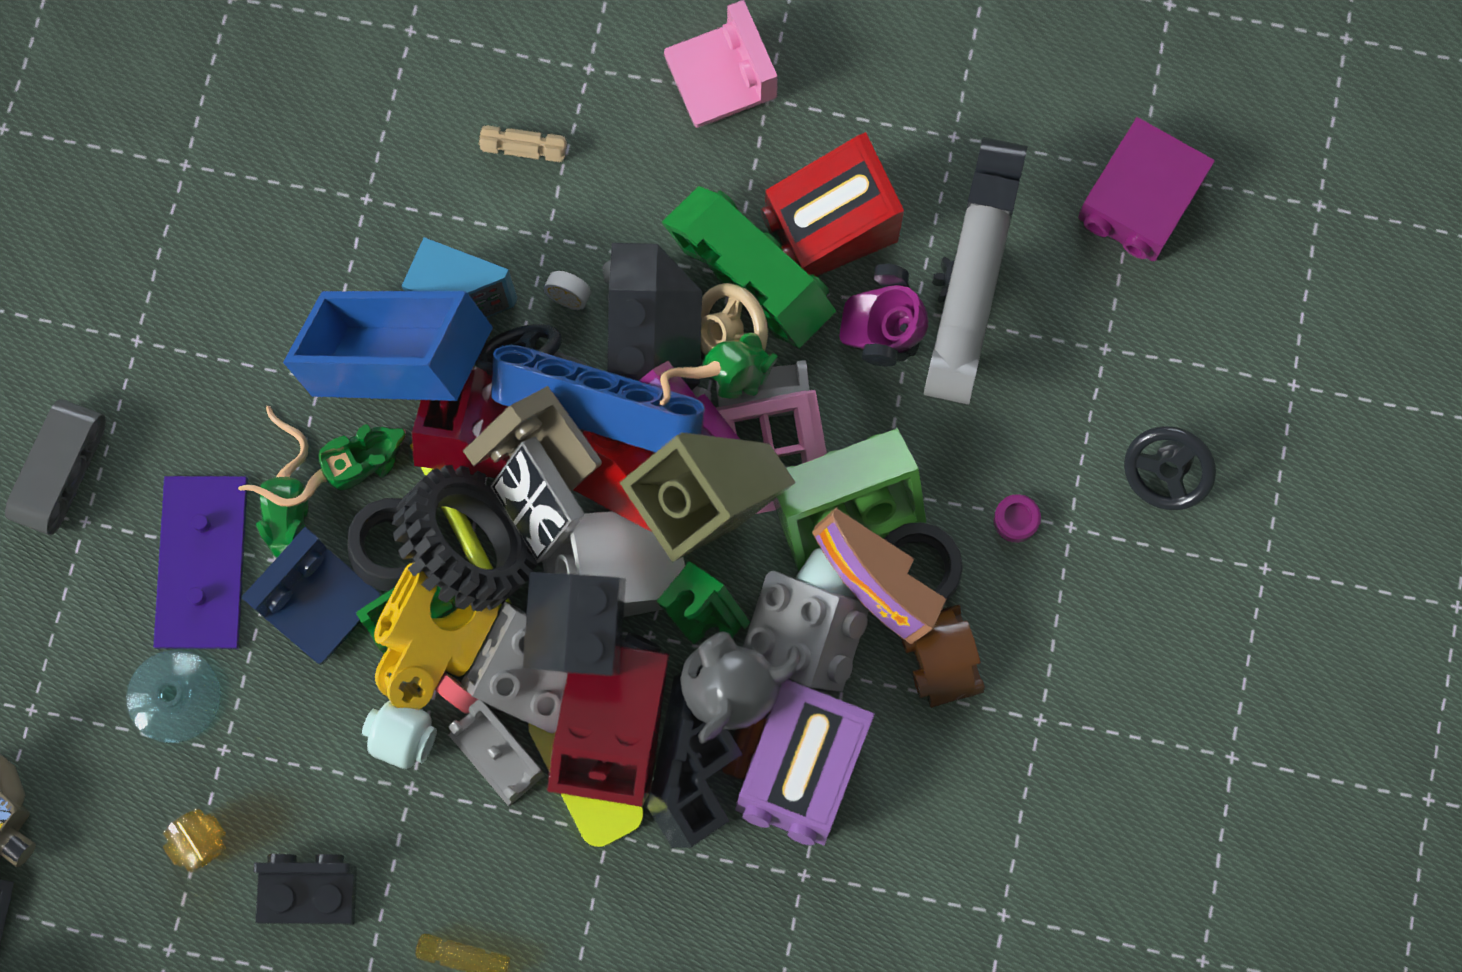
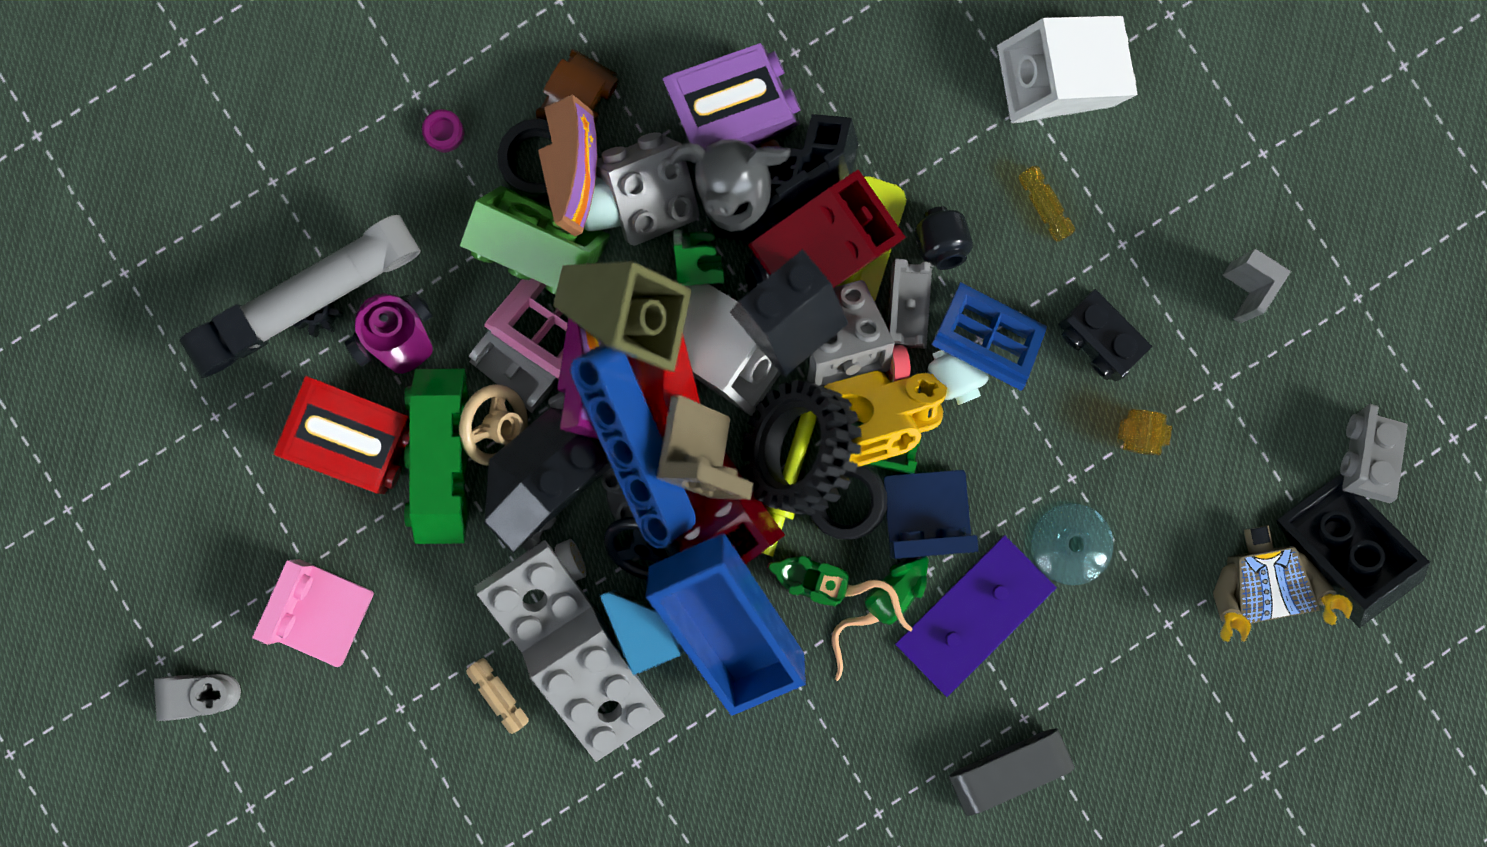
camera: 140 degrees left, 10 degrees up
(389, 753) = (981, 356): none -> blue piece
(498, 218) = (569, 651): none -> light grey bracket
(520, 835) = (943, 238): none -> black head
(537, 499) = (733, 422): tile -> none
(732, 364) = (524, 387): green animal -> none
(1144, 190) = (133, 249): magenta panel -> none
(1178, 449) = (313, 65): black piece -> none

